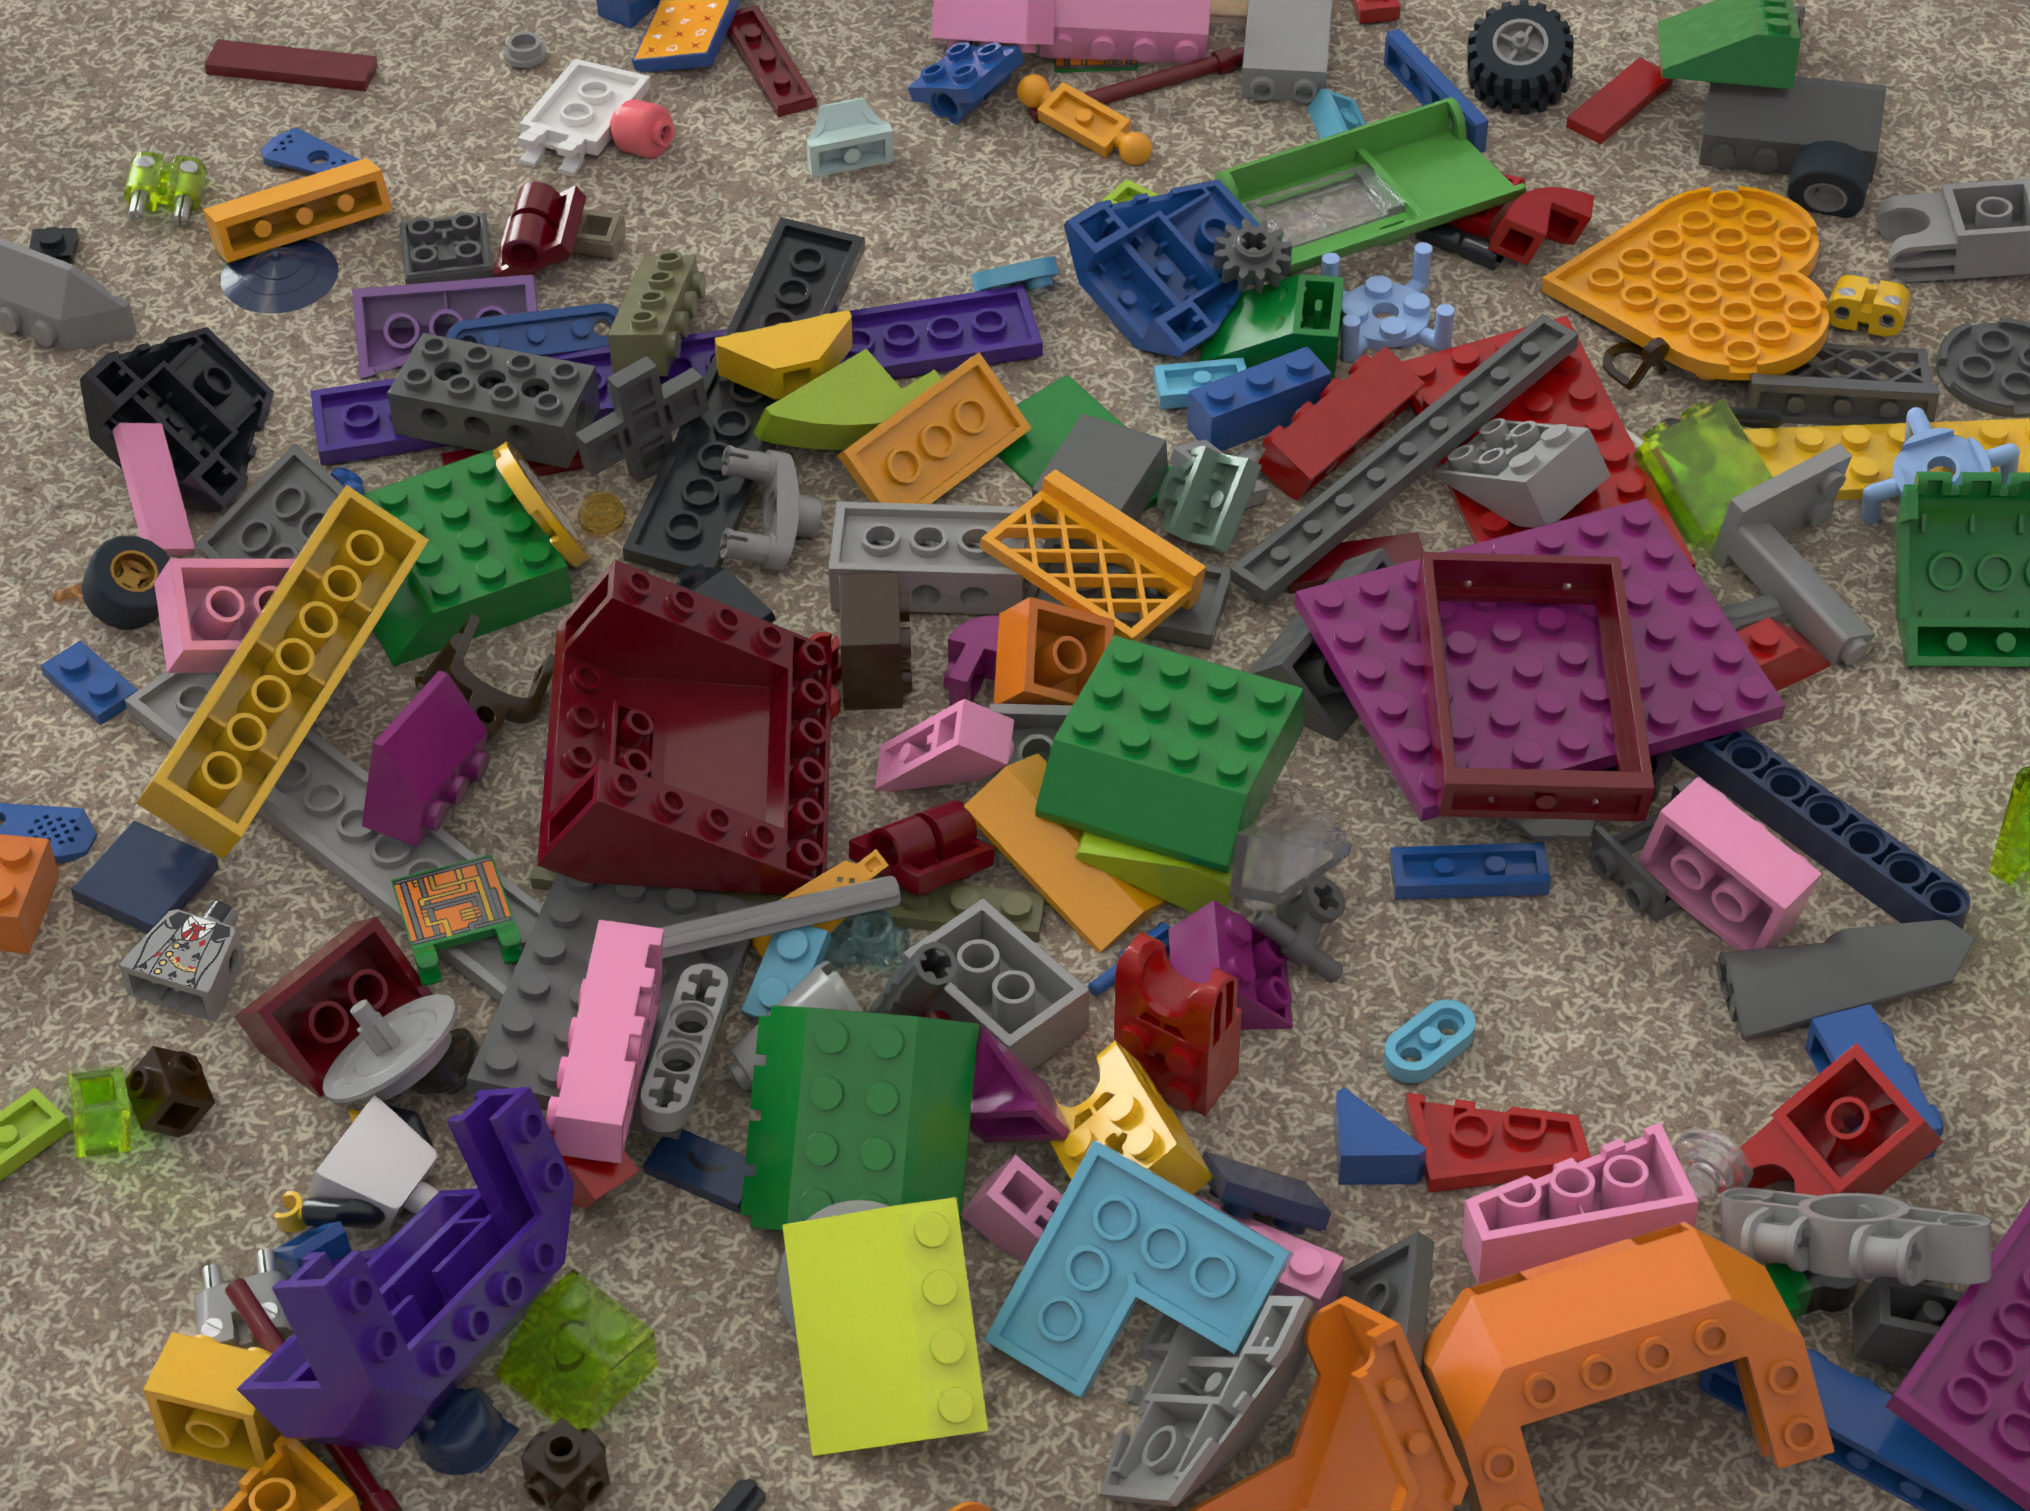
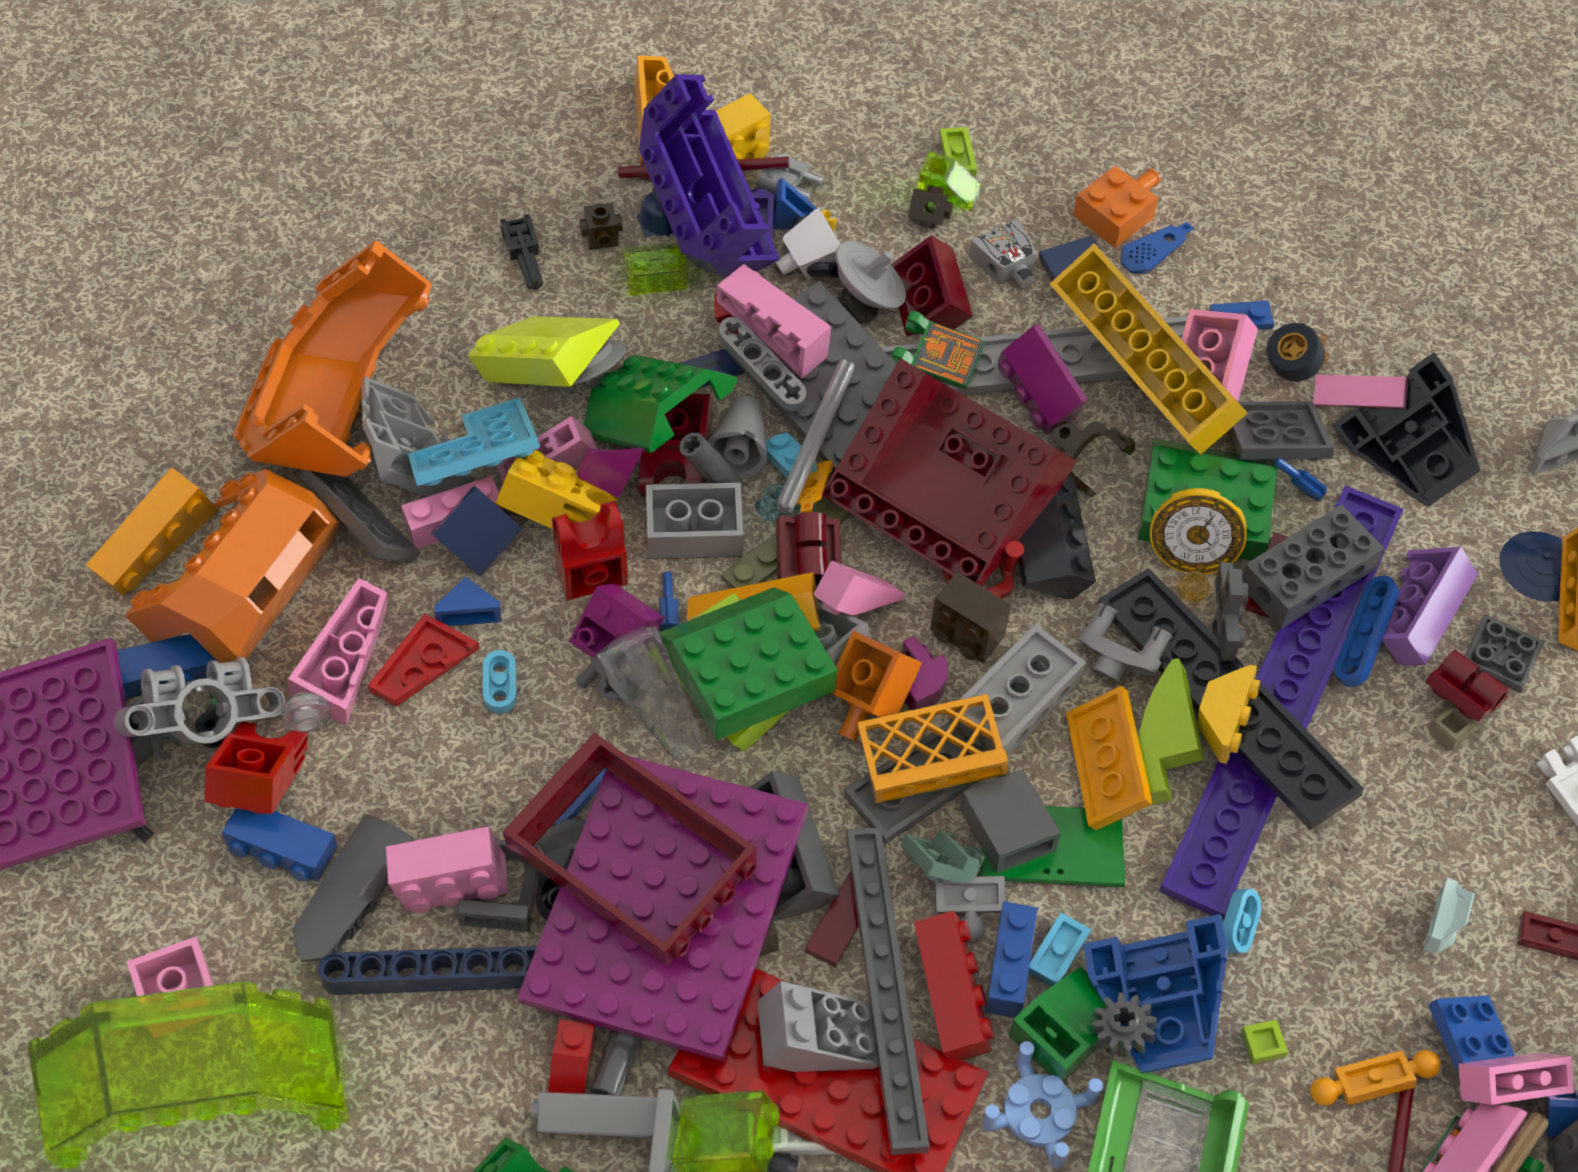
camera: 125 degrees right, 10 degrees up
(642, 128) = (1550, 815): coral head -> none
(657, 311) = (1335, 691): olive brick -> none

